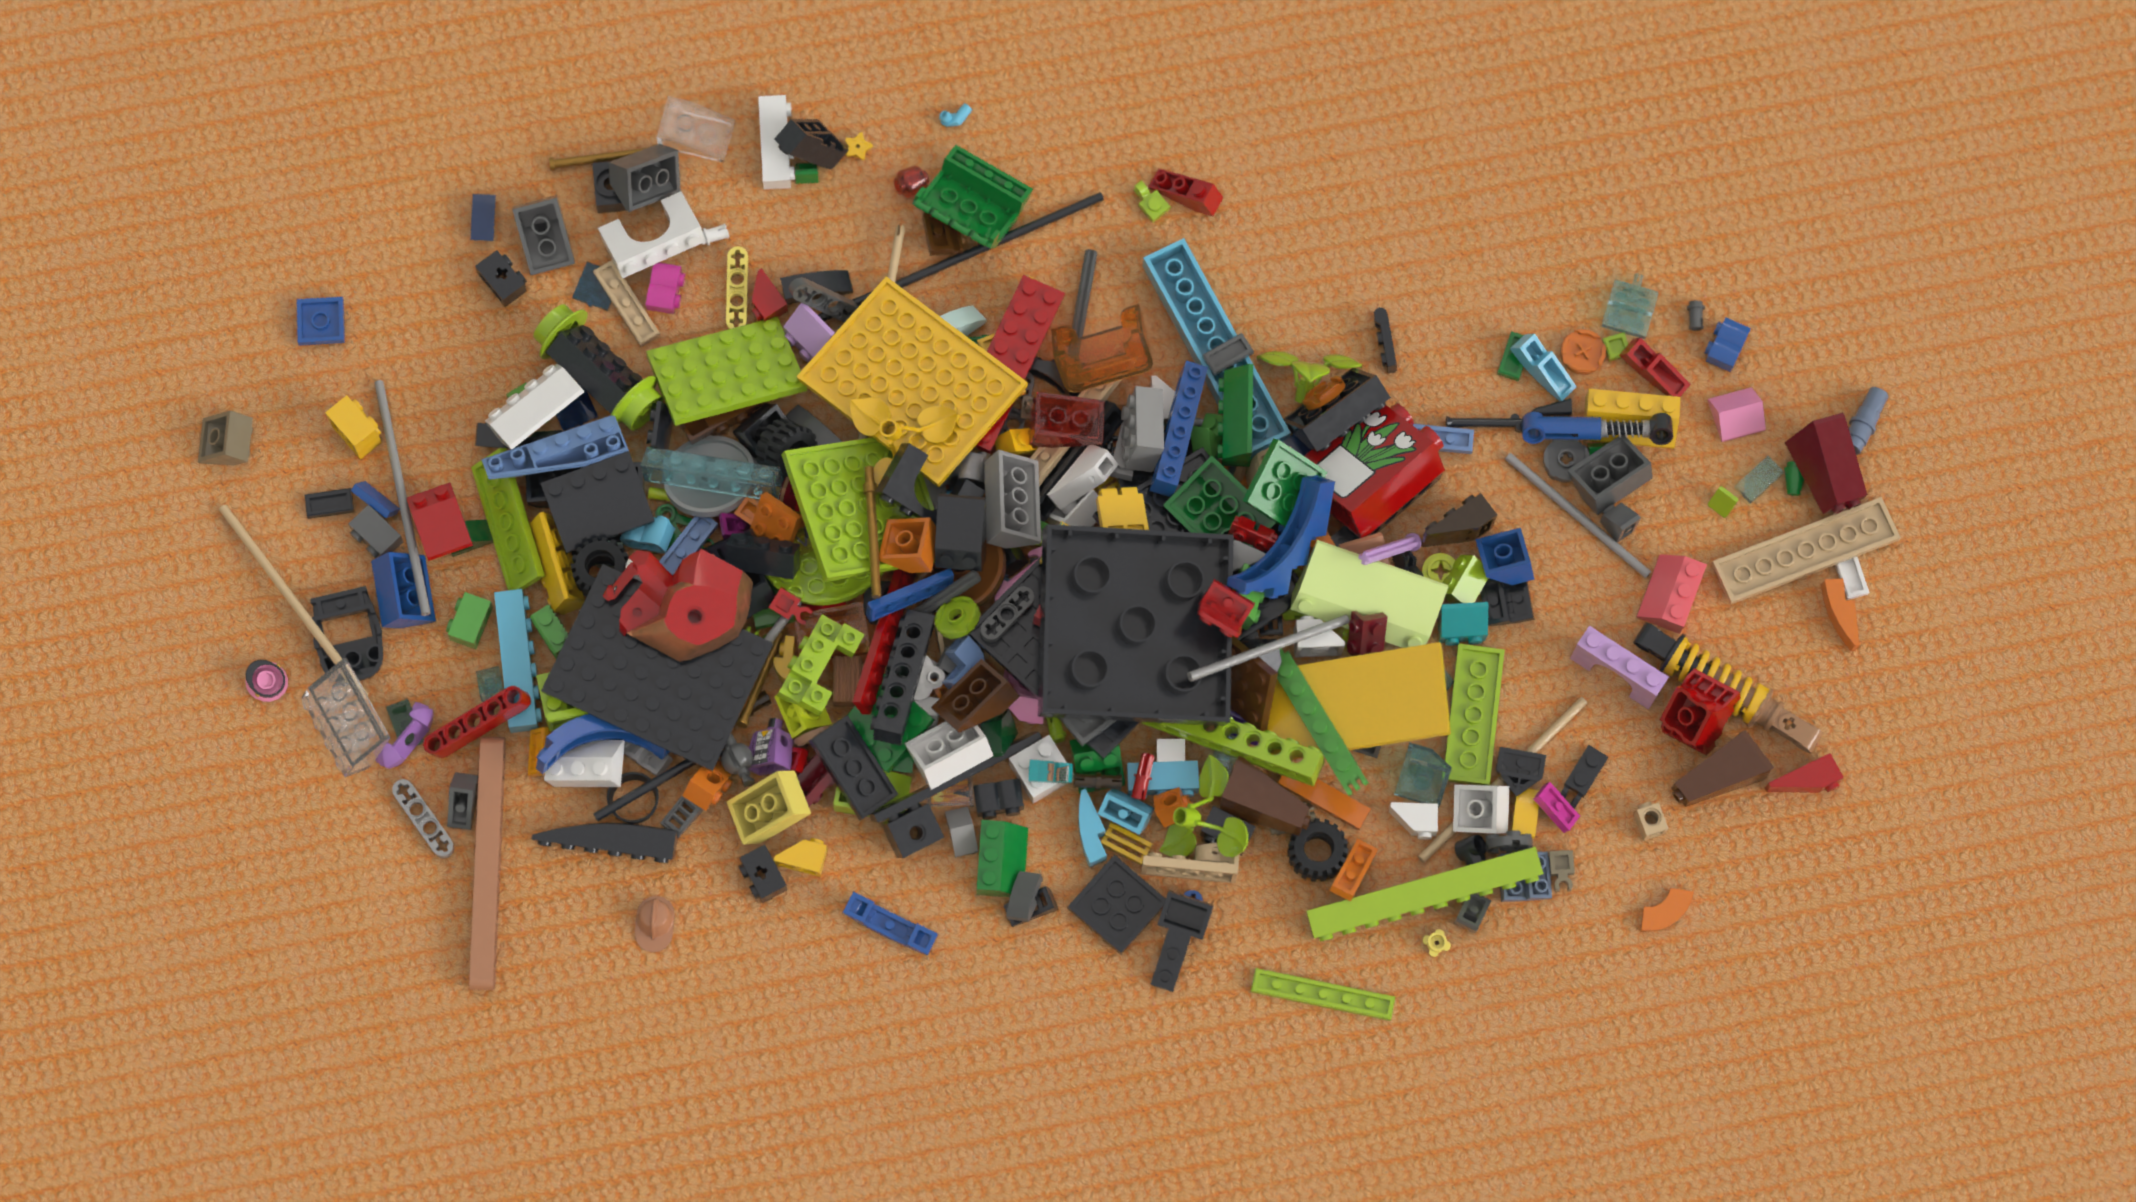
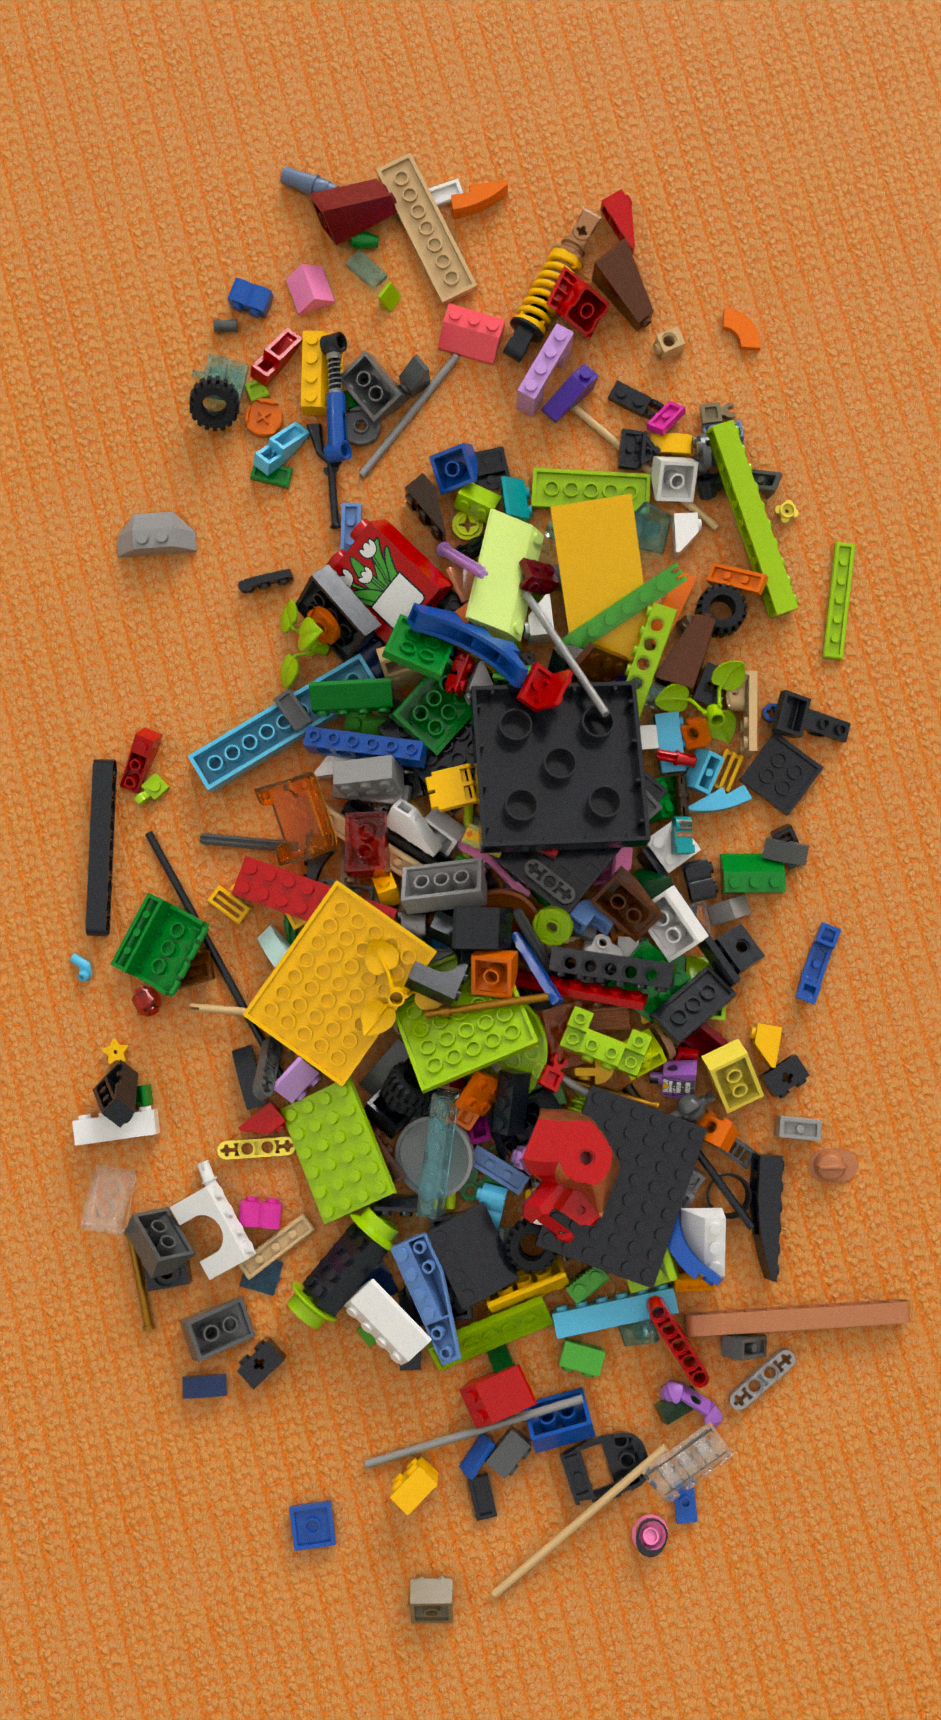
camera: 85 degrees left, 10 degrees up
(294, 722) = (686, 1507): none -> blue plate
(702, 883) = (798, 1128): none -> light grey panel
(1001, 291) = (242, 914): none -> yellow tile
(1089, 143) = (101, 847): none -> black beam
(1448, 224) = (155, 535): none -> light grey wedge
(1591, 697) = (570, 393): none -> dark purple slope
(1611, 295) = (209, 418): none -> black tyre

